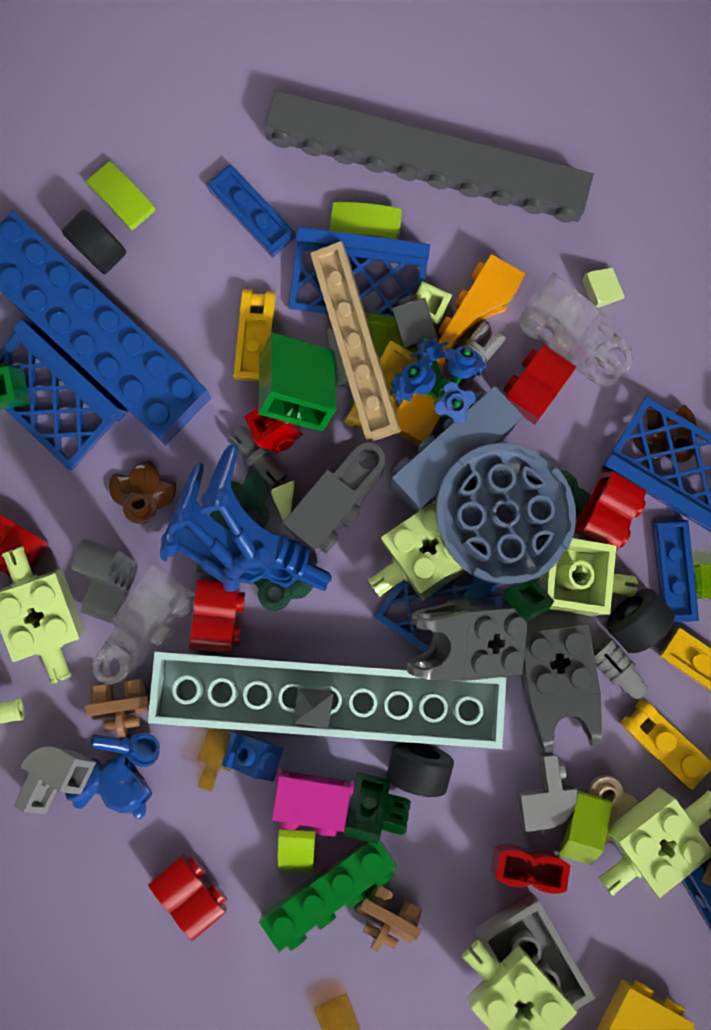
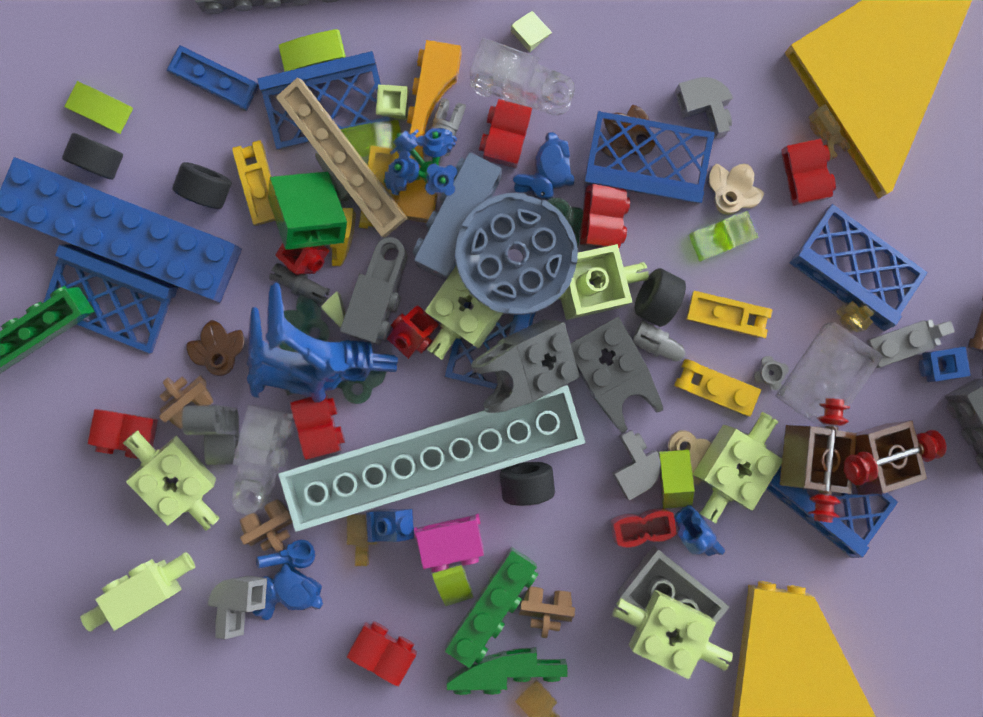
camera: 20 degrees left, 5 degrees up
(100, 529) = (194, 392): none -> medium nougat hips
(195, 315) = (201, 185): none -> black tyre
(306, 963) = (494, 670): none -> green slope
(313, 707) = (422, 468): dark grey slope -> none
(315, 438) = (341, 250): none -> yellow slope
(352, 558) = (412, 331): none -> red brick
(375, 810) = (503, 529): dark green hinge -> none
(414, 321) = (384, 121): dark grey brick -> none
(528, 599) = (560, 316): dark green plate -> none
(572, 439) = (551, 169): none -> blue animal
(587, 898) = (696, 533): none -> blue animal
(676, 568) = (674, 243): blue tile -> none

